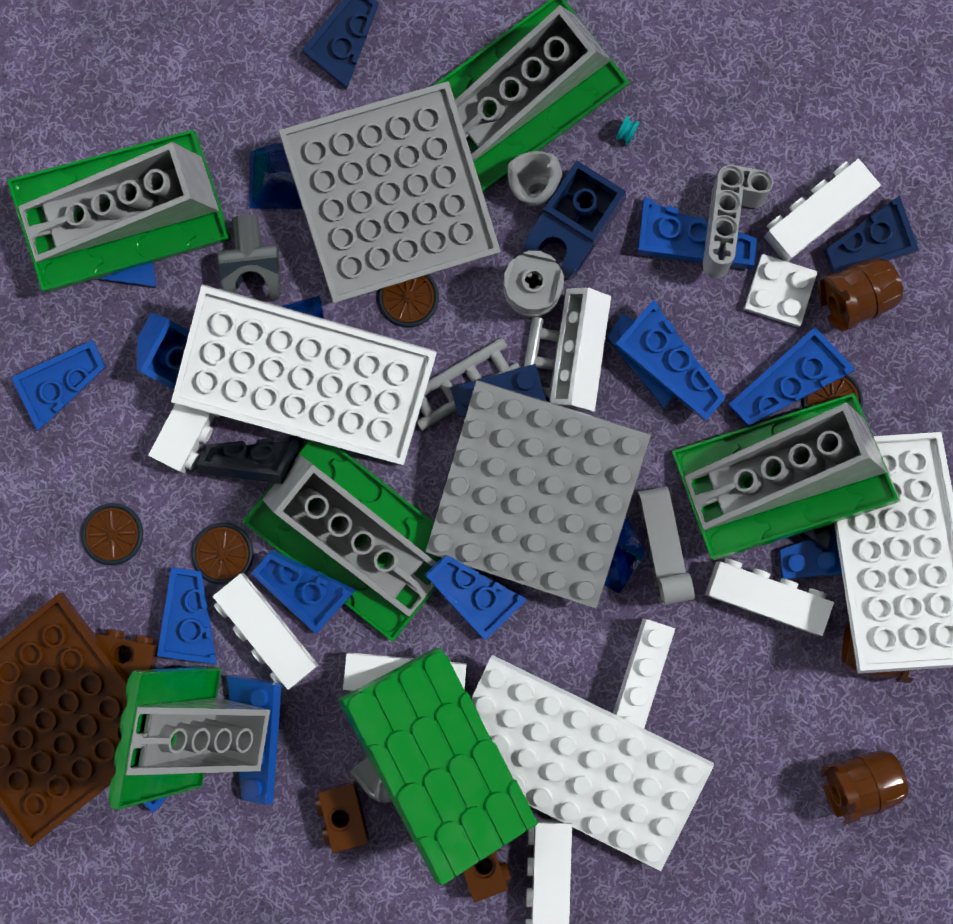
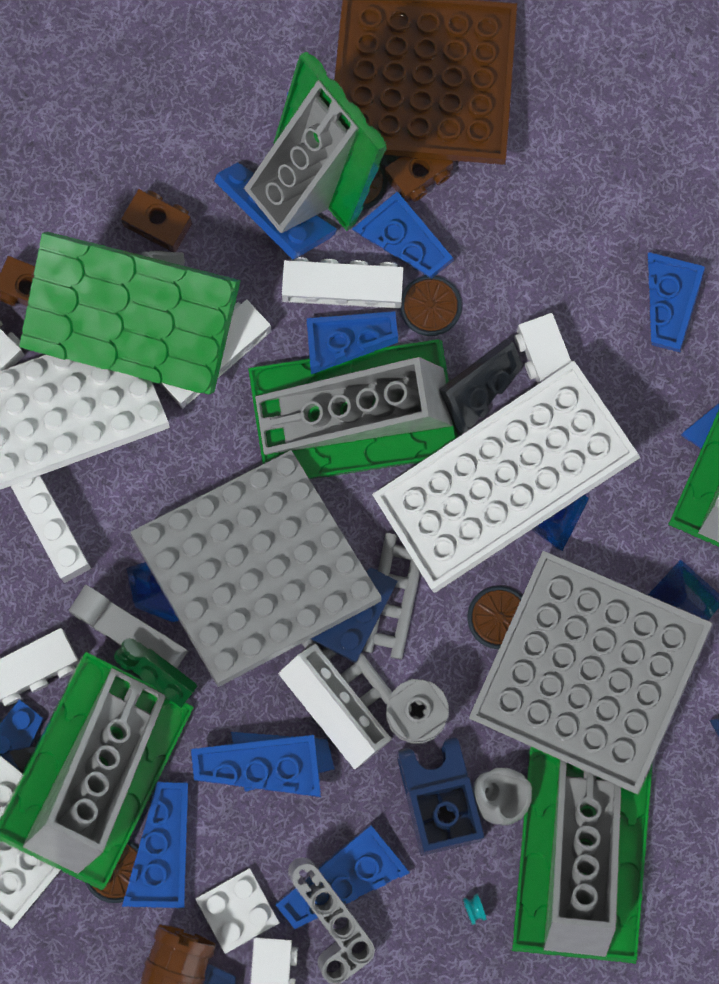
camera: 135 degrees right, 5 degrees down
(112, 534) = (519, 239): reddish brown wheel -> none
(161, 349) = (625, 393): blue slope -> none
(249, 258) = (638, 521): dark grey connector -> none
(474, 596) = (225, 456): blue wing -> none
(676, 497) = (155, 671): none -> dark green hinge

